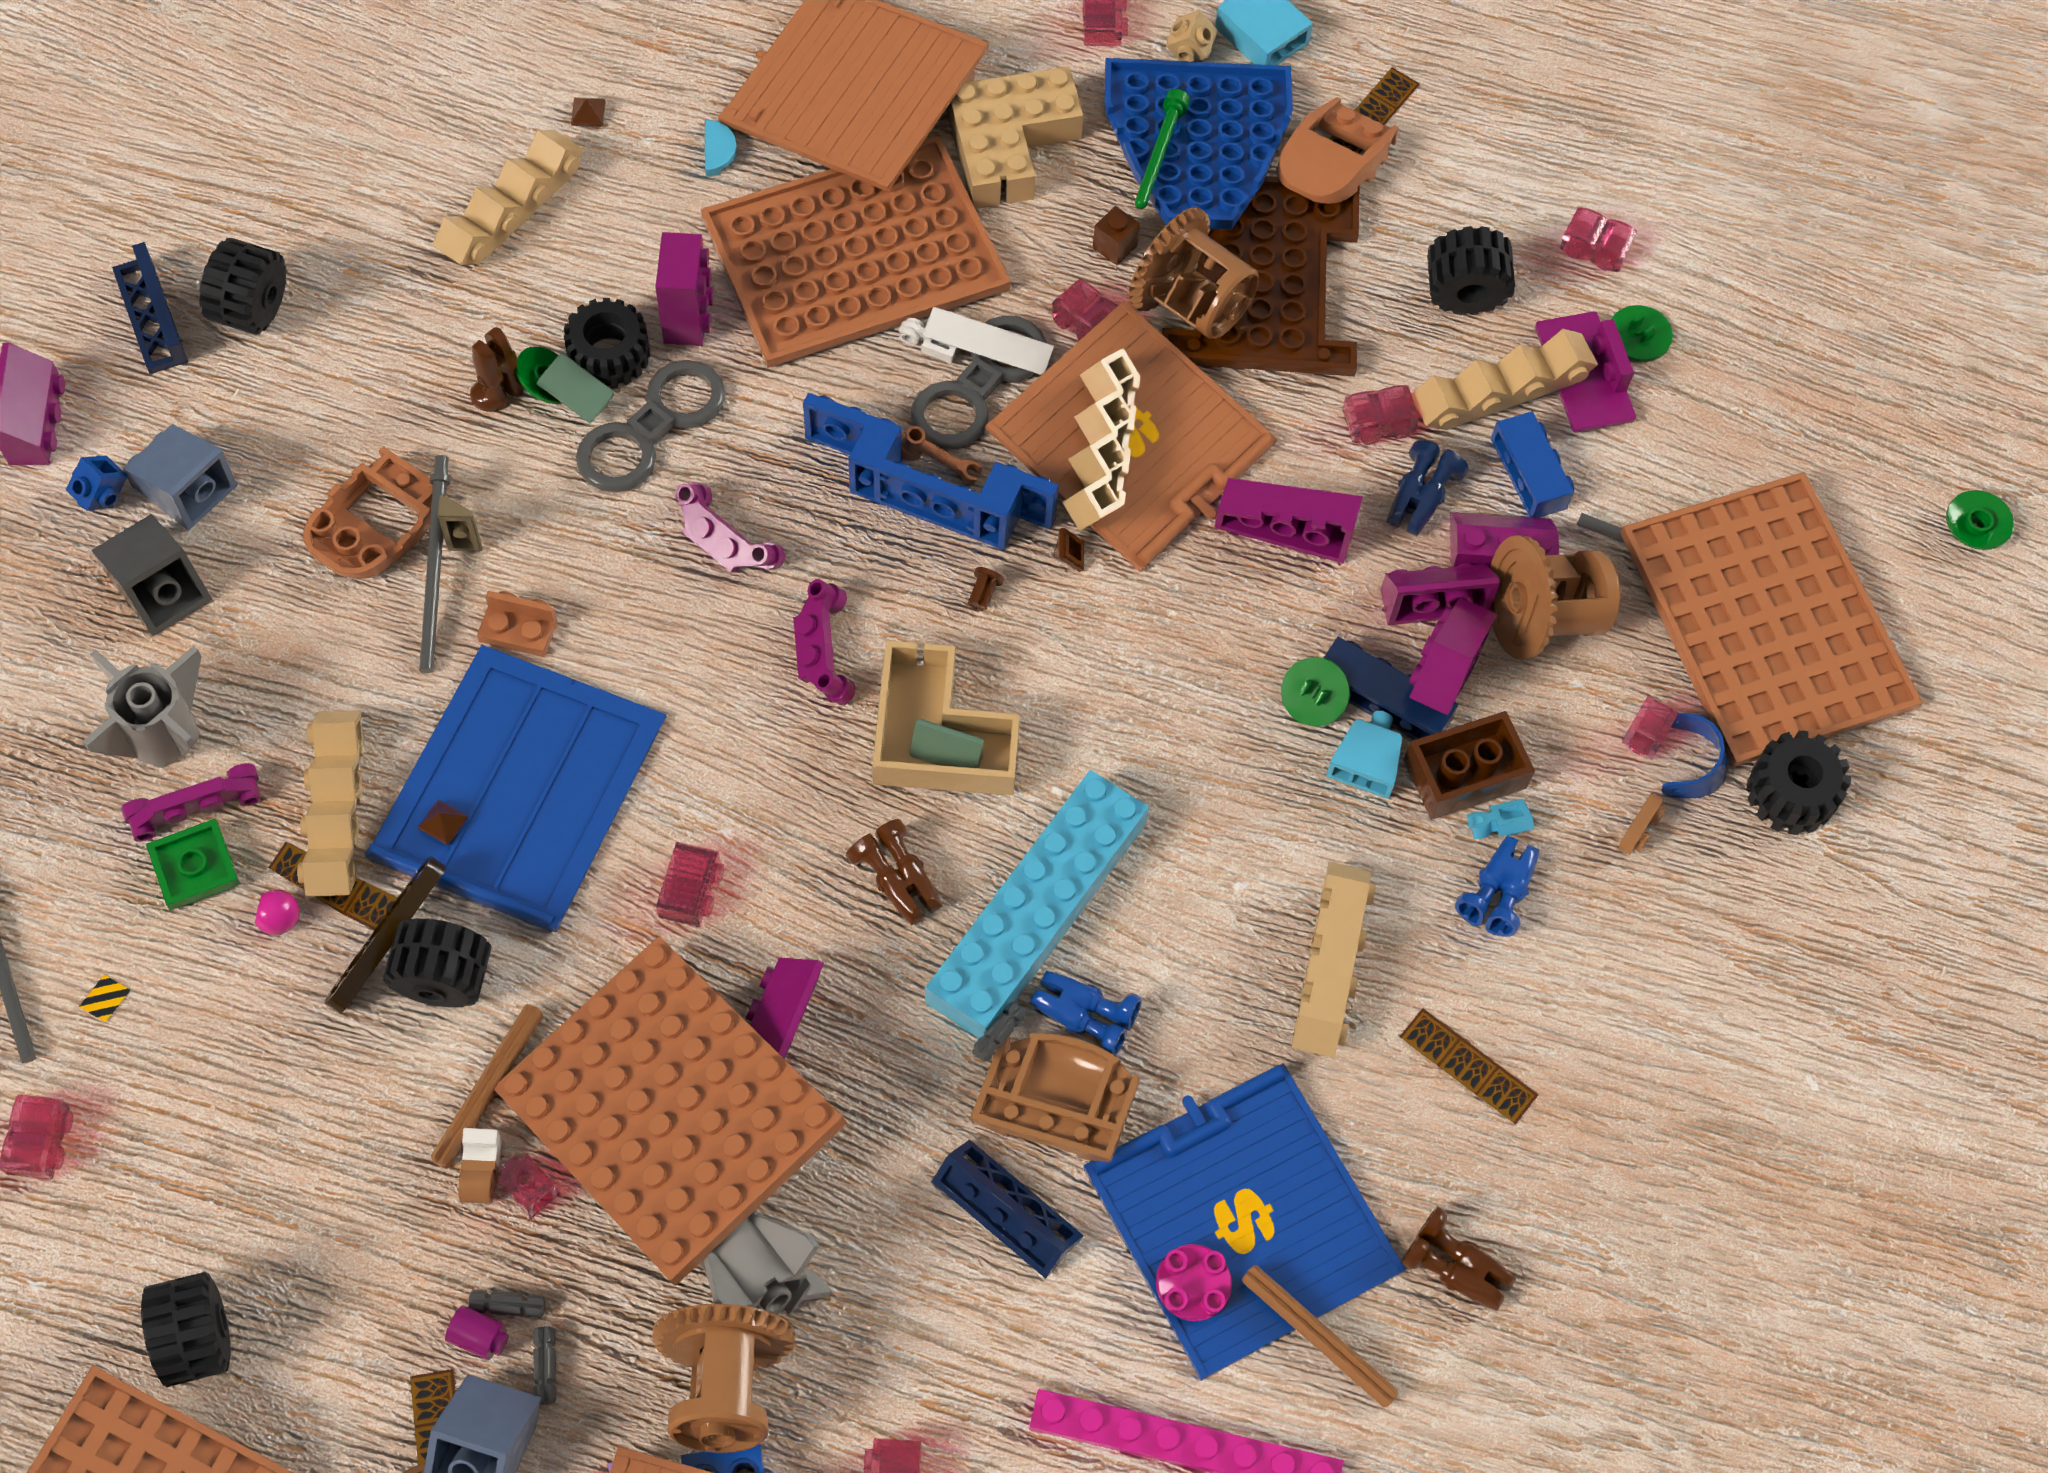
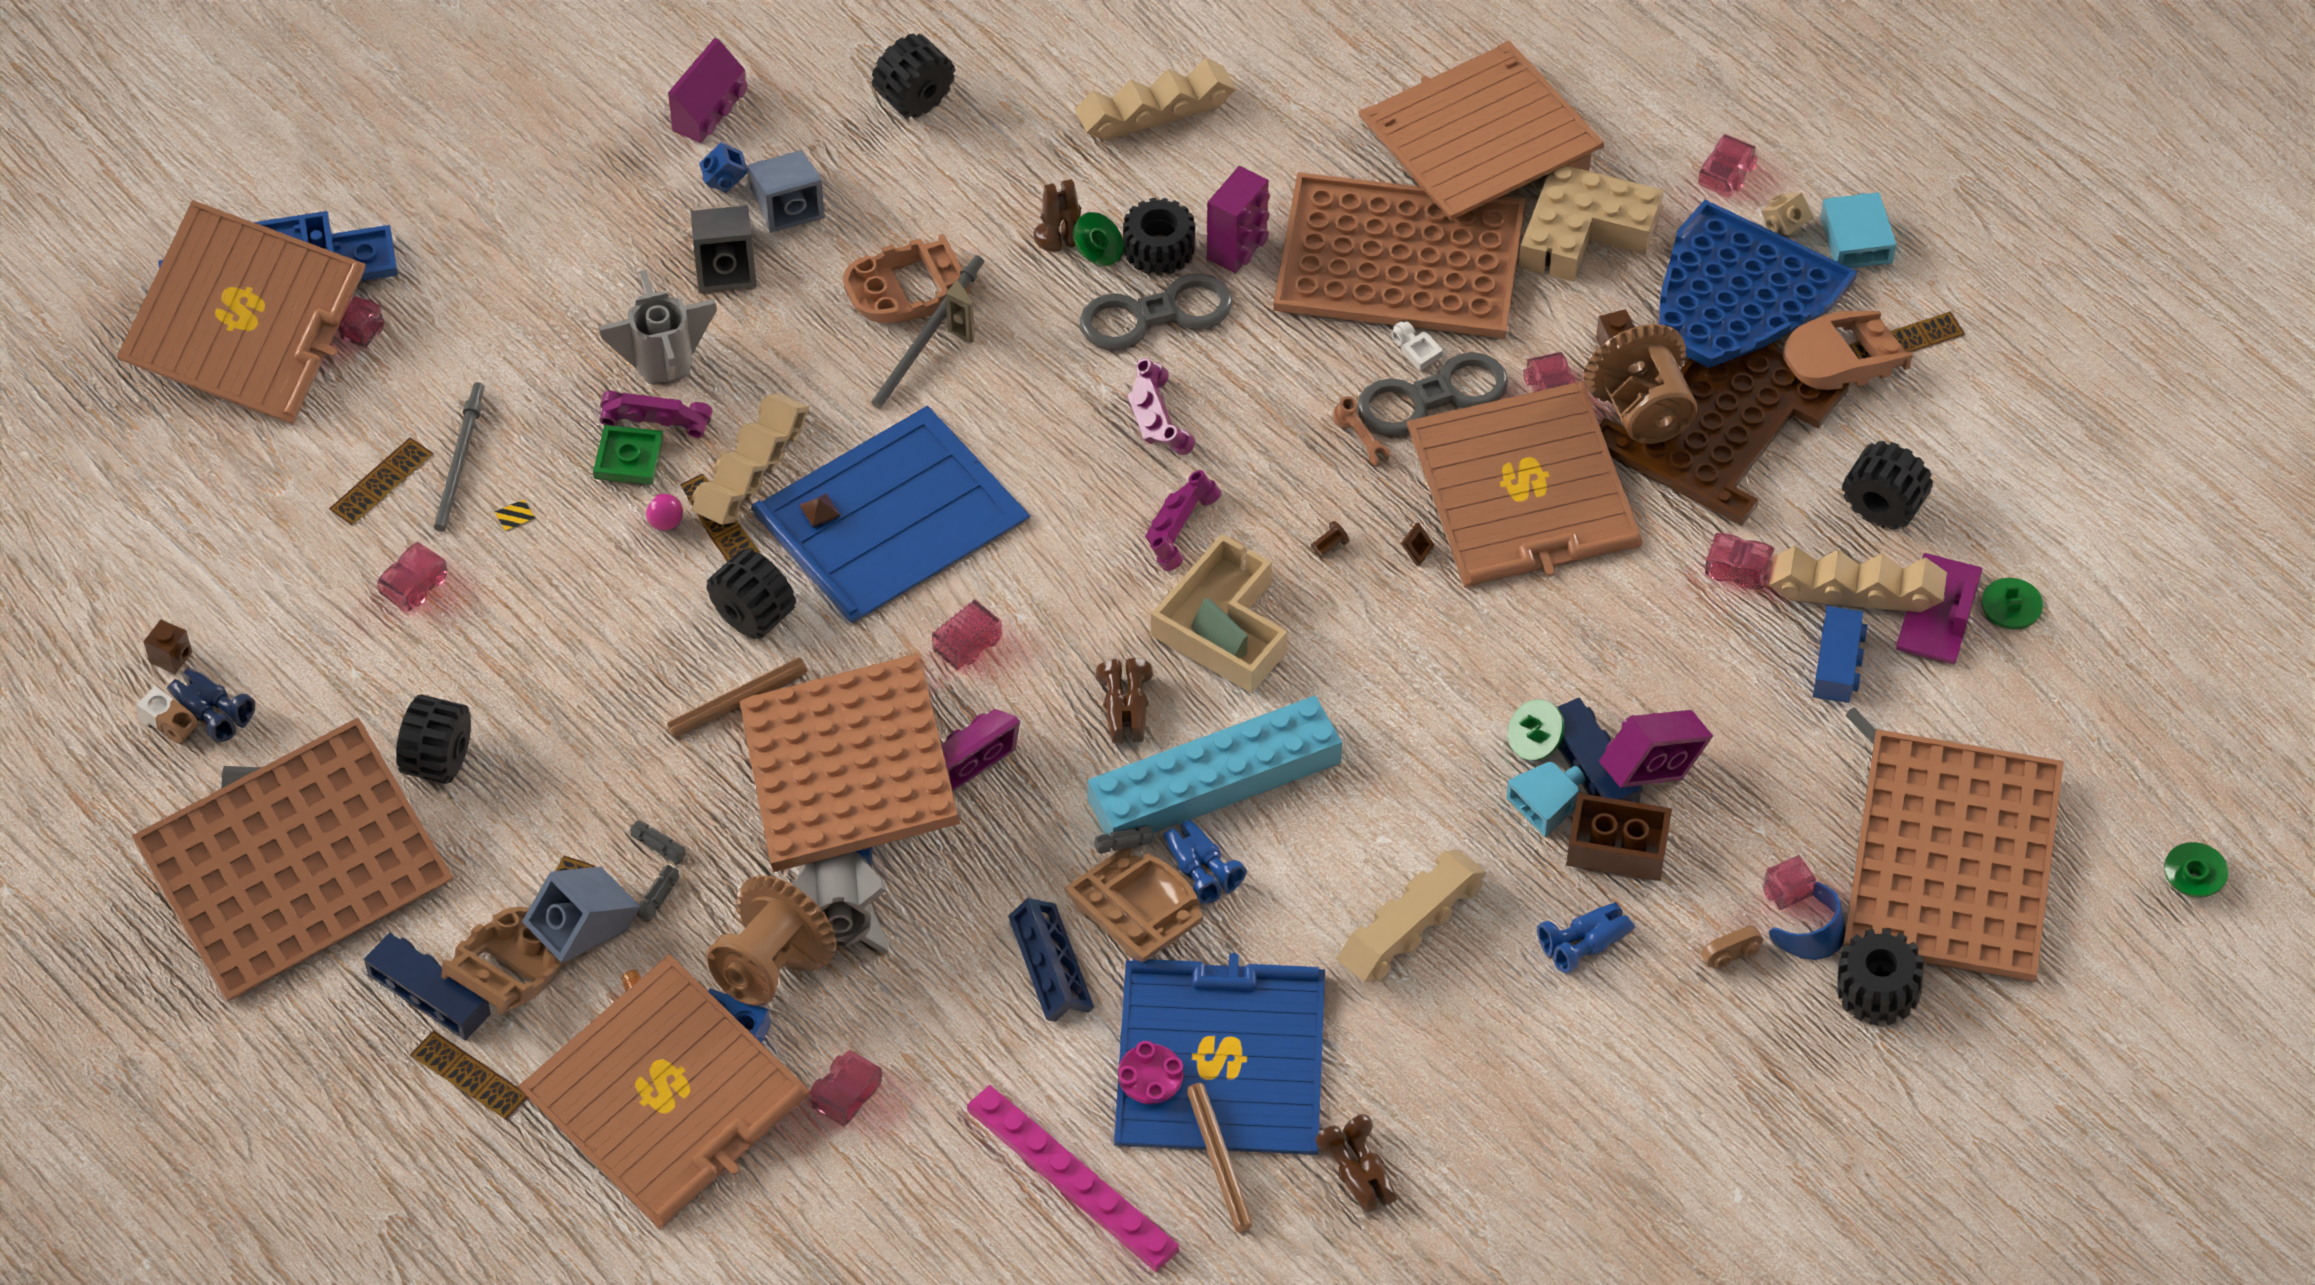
camera: 35 degrees right, 10 degrees down
(158, 304) = (844, 70): dark blue fence -> none
(383, 935) = (702, 573): dark brown beam -> none
(476, 1333) = (624, 847): magenta brick -> none
(479, 1165) = (697, 743): leg -> none
(517, 623) = (963, 403): nougat bracket -> none
(530, 1196) = (721, 768): clear pink brick -> none
(576, 388) = (1113, 257): sand green slope -> none
(588, 112) = (1262, 65): reddish brown slope -> none
(719, 147) = (1345, 136): medium azure tile -> none
(882, 477) = (1304, 418): blue bracket -> none
(988, 341) = (1456, 364): white sticker -> none
(1107, 429) = (1499, 460): tan brick -> none
(1175, 106) = (1729, 256): green piece -> none
(1290, 517) = (1607, 599): magenta wedge -> none
(1422, 498) = (1725, 635): dark blue piece -> none
(1427, 592) = (1664, 694): magenta slope -> none
(1469, 1066) = (1470, 1046): sticker -> none
(1478, 536) = (1769, 701): magenta slope -> none
(1505, 818) = (1624, 891): medium azure plate -> none
(1528, 590) = (1775, 729): medium nougat piece -> none
(1598, 239) = (2025, 515): clear pink brick -> none

